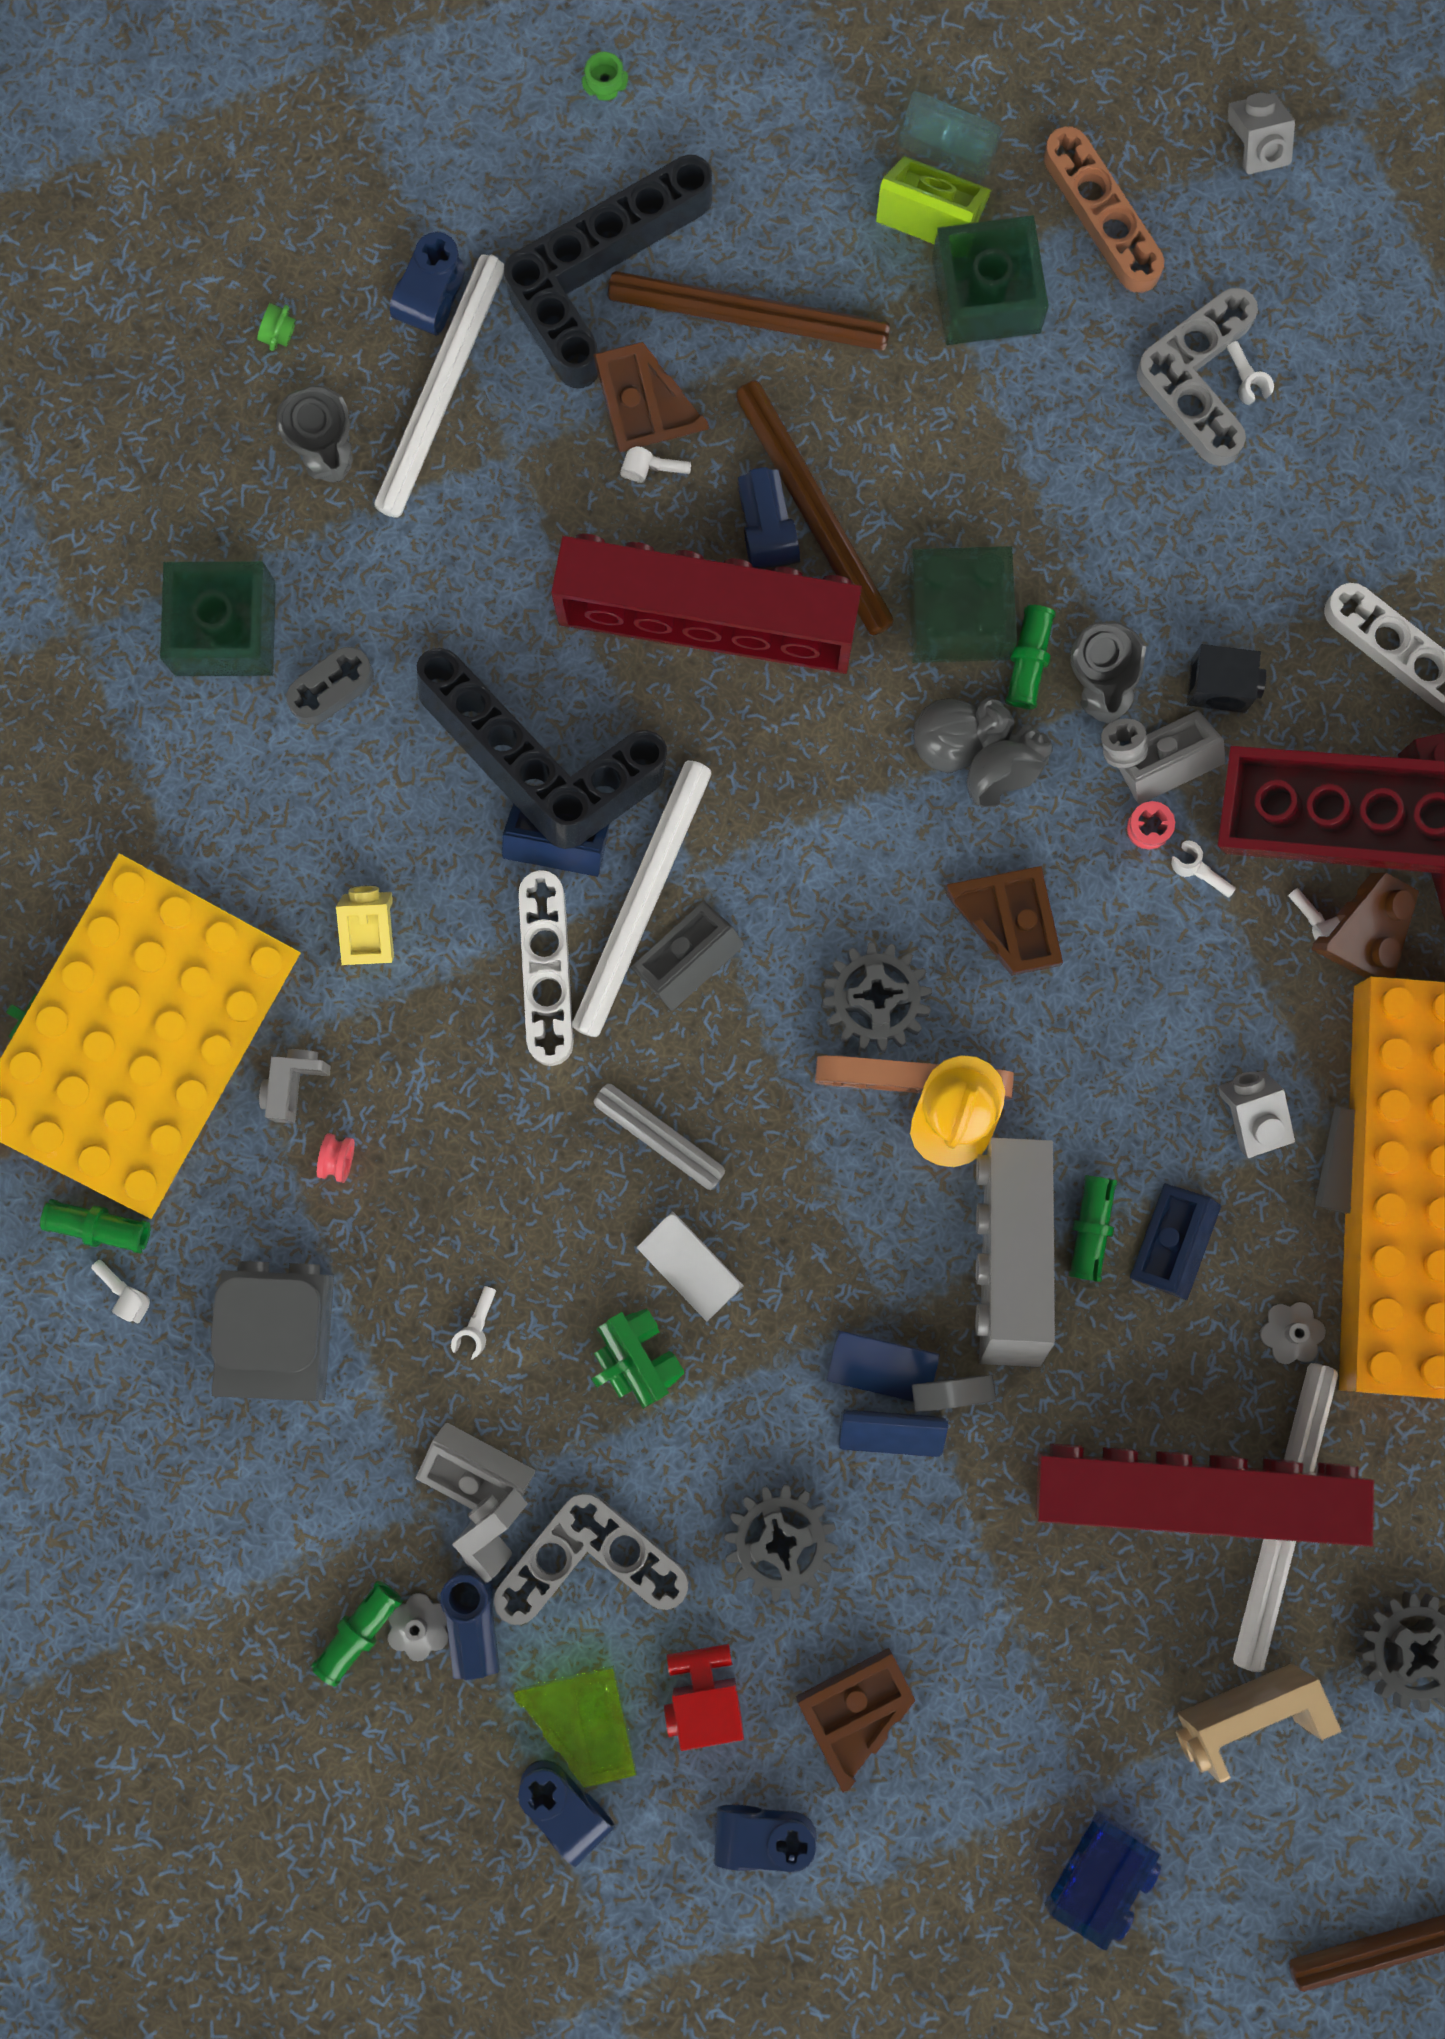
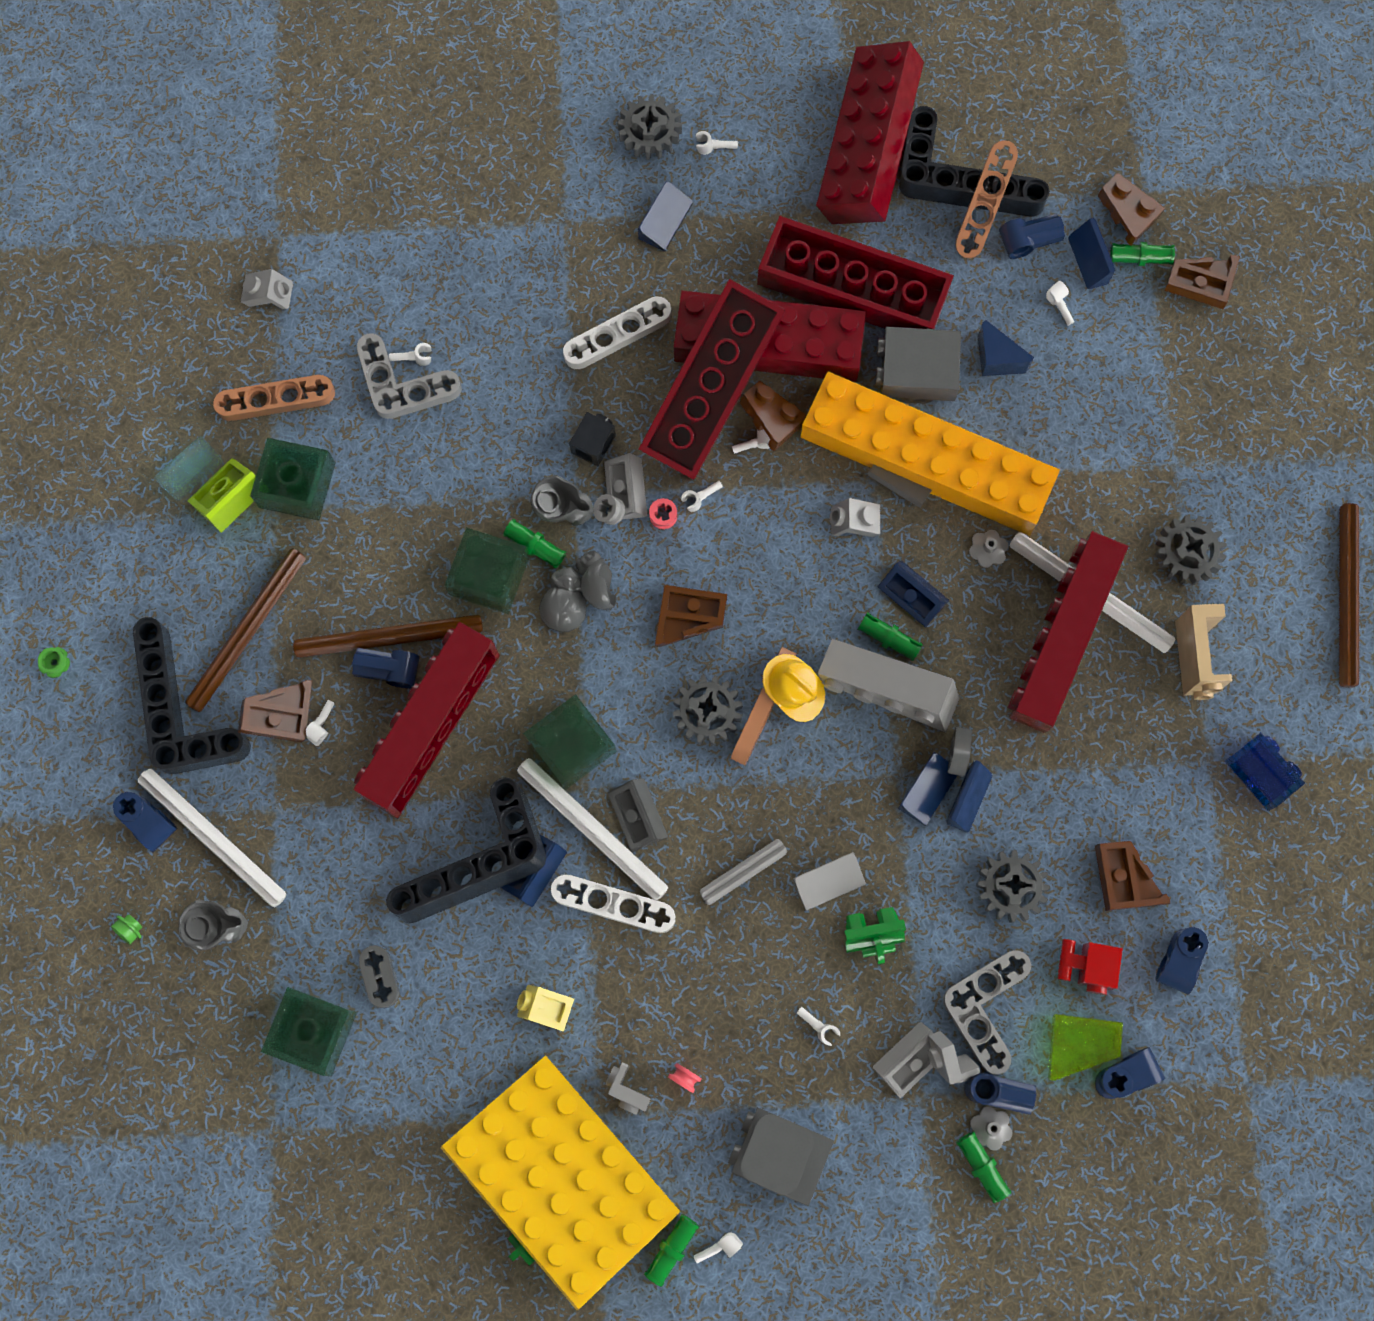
camera: 70 degrees left, 5 degrees down
(753, 817) = (570, 742): none -> clear green brick

